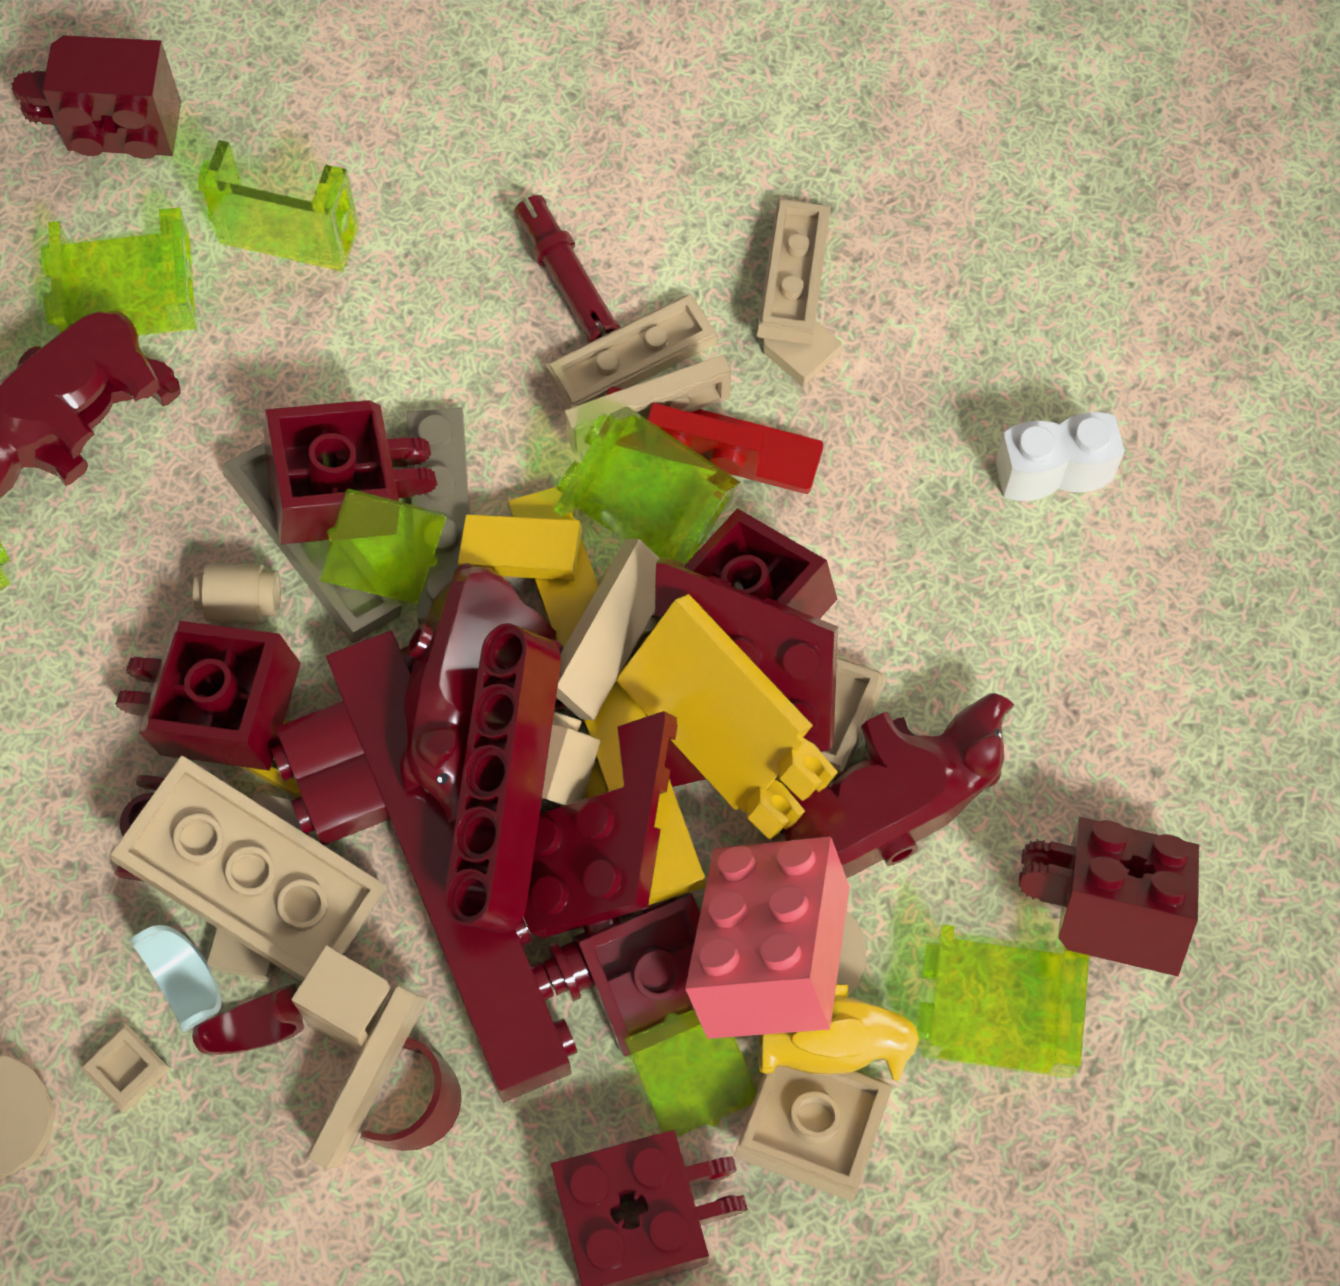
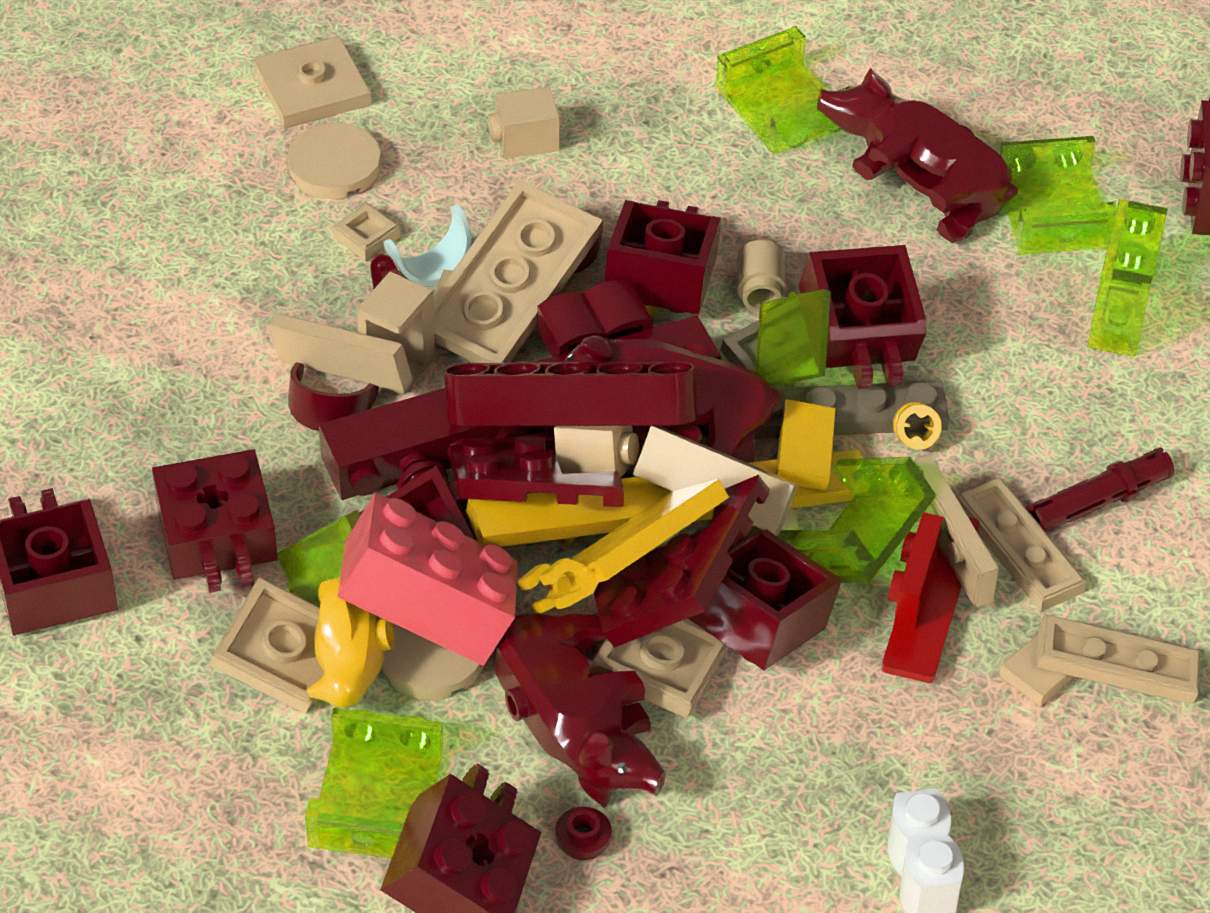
camera: 90 degrees right, 20 degrees down
(478, 438) = (912, 440): none -> yellow bush
(1040, 802) = (583, 845): none -> dark red plate

